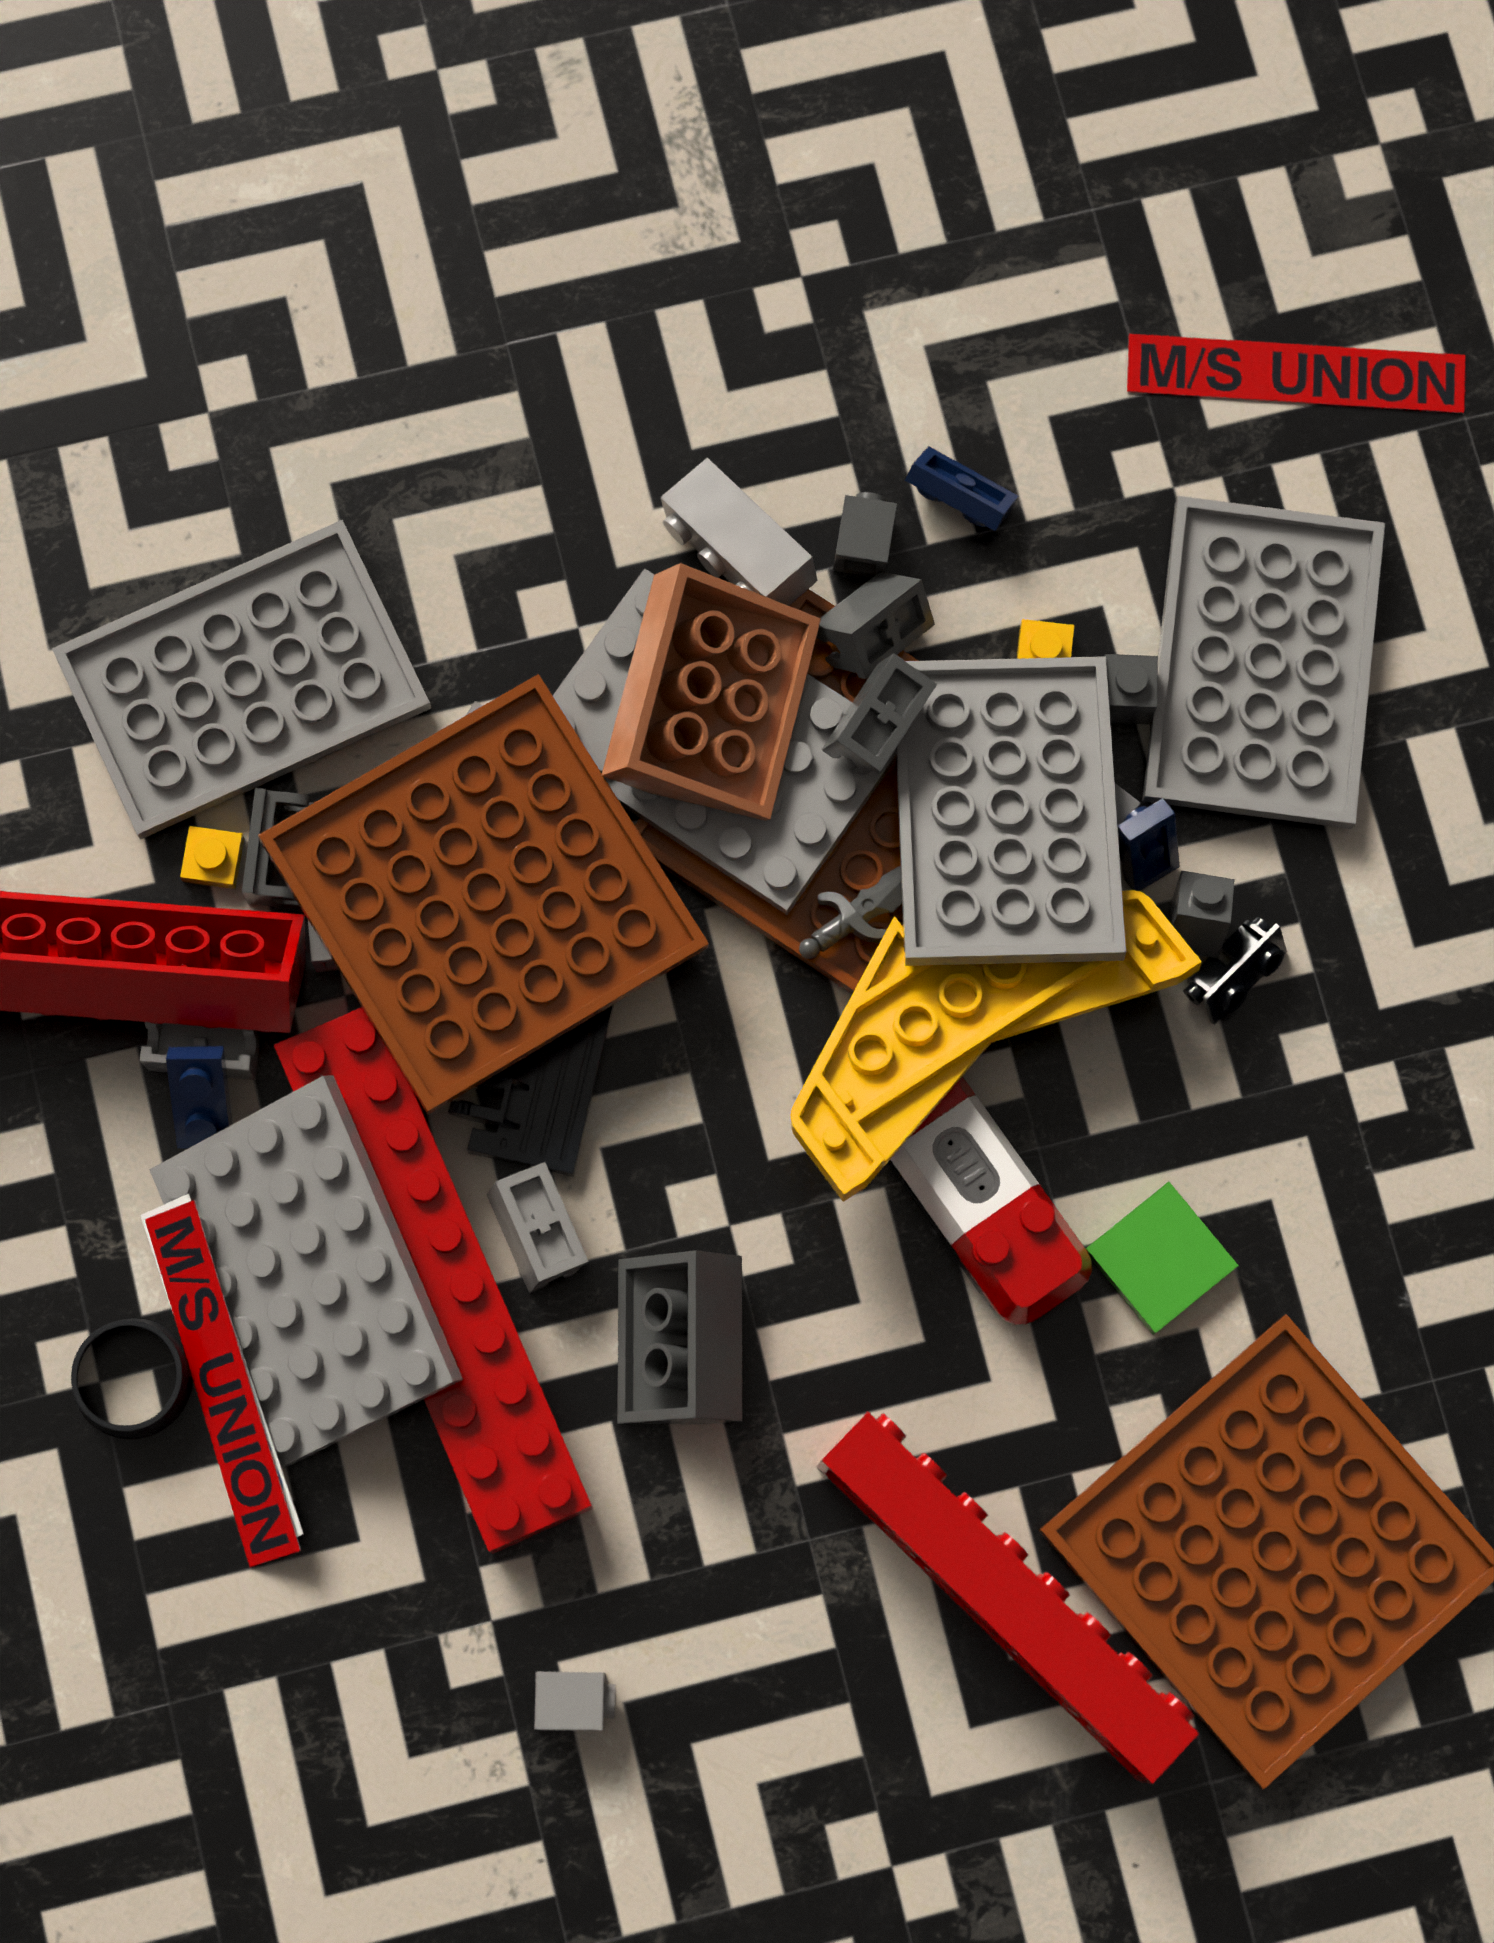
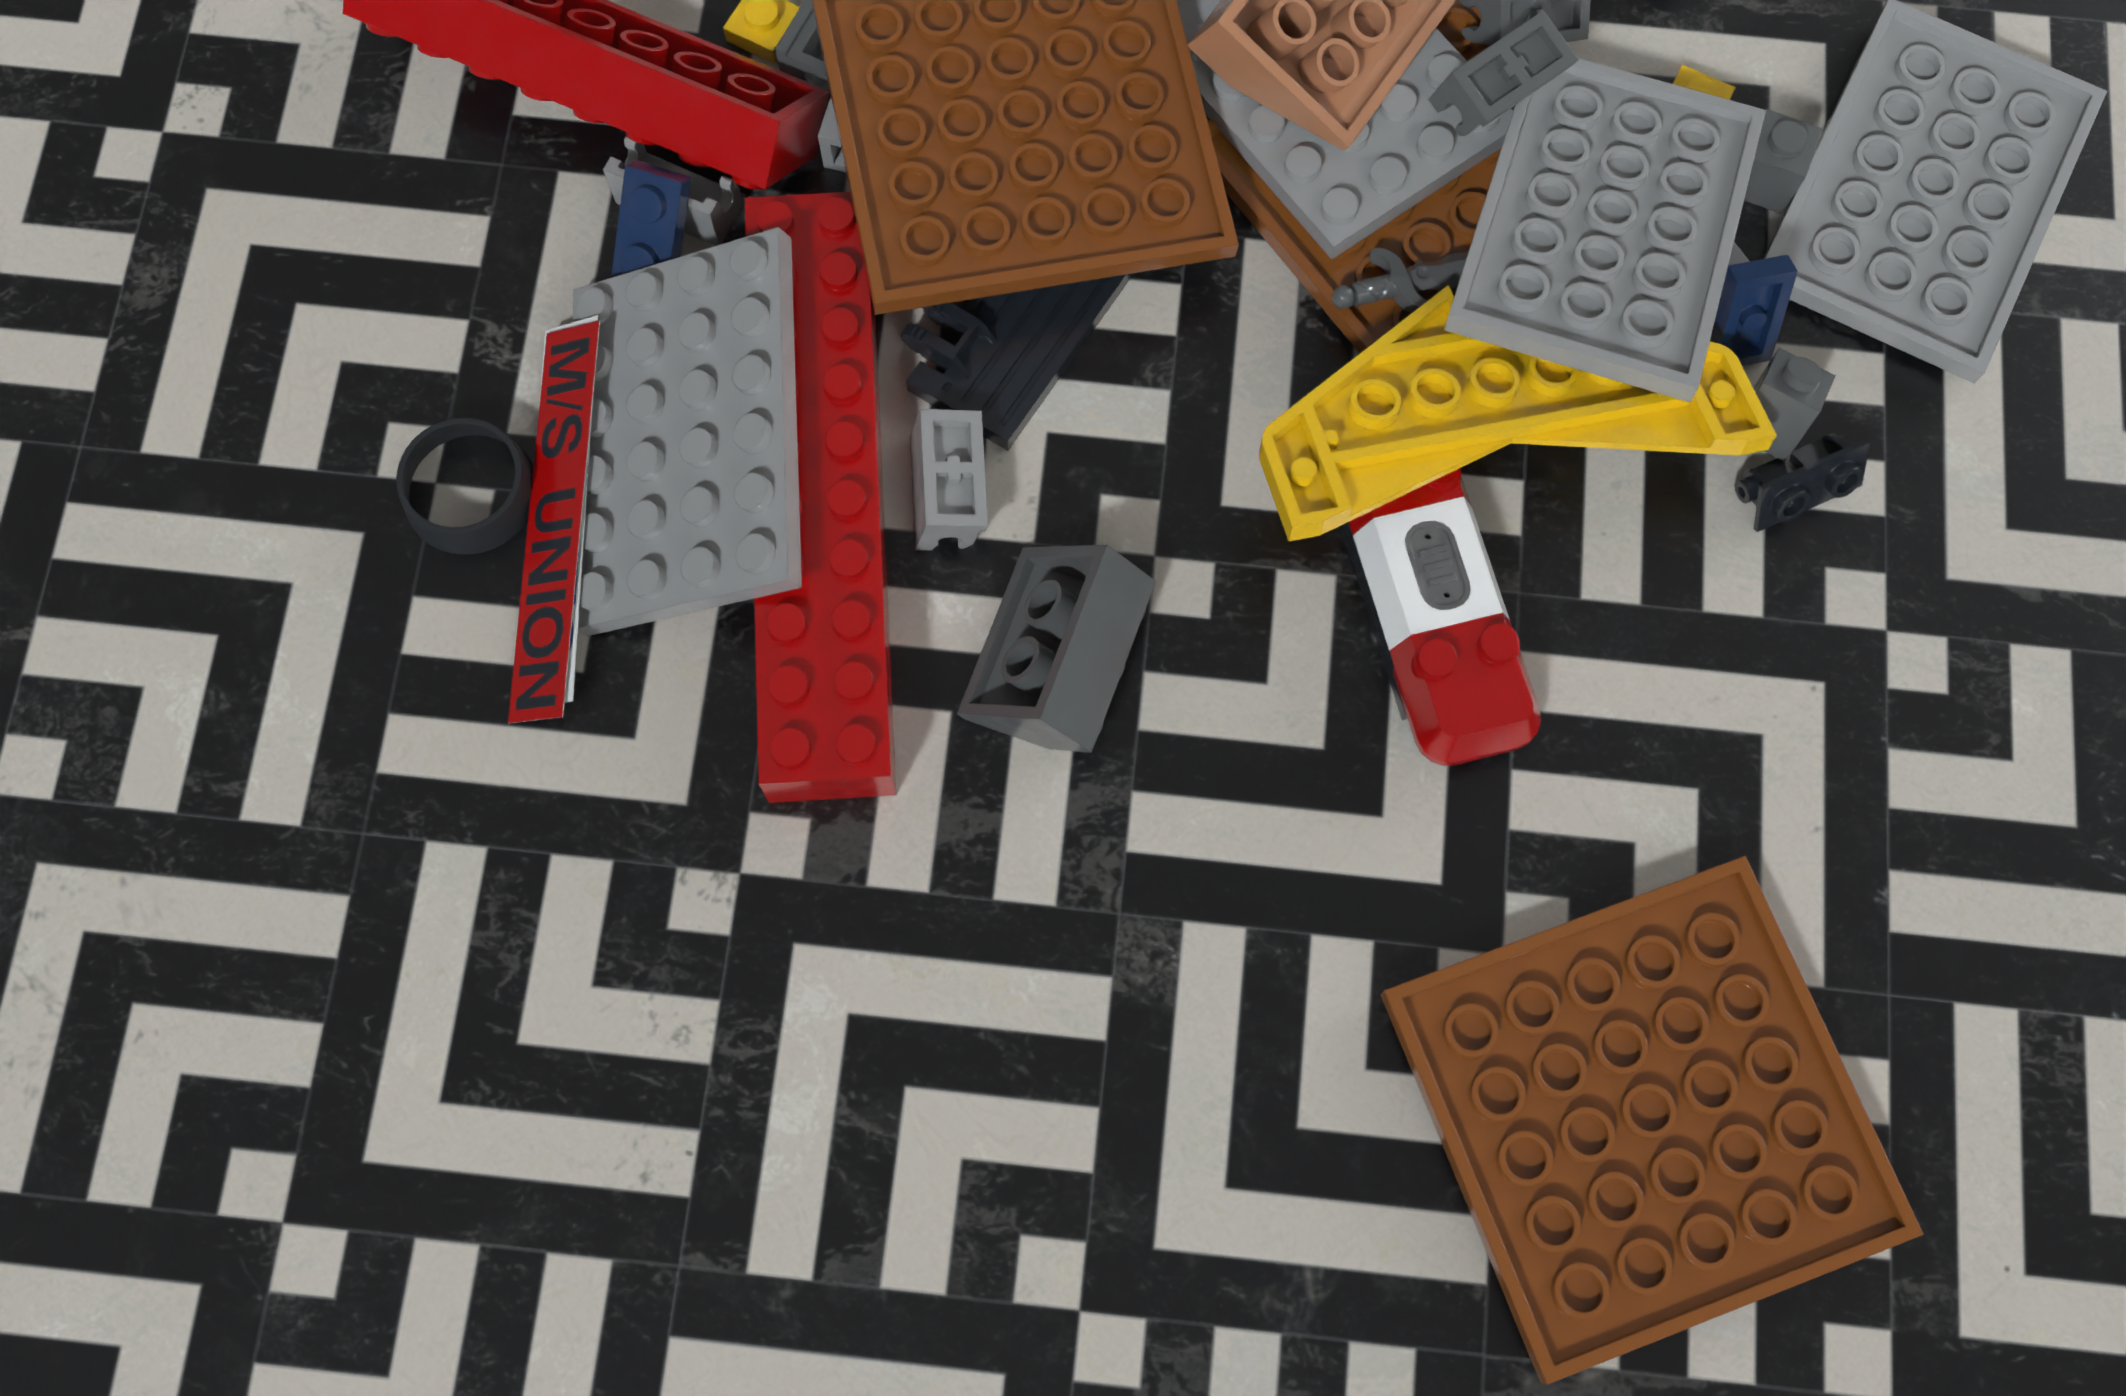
camera: 25 degrees right, 5 degrees down
(573, 1701) = (790, 985): light grey brick -> none
(1008, 1600) = (1323, 1052): red brick -> none
(1161, 1258) = (1619, 751): bright green tile -> none

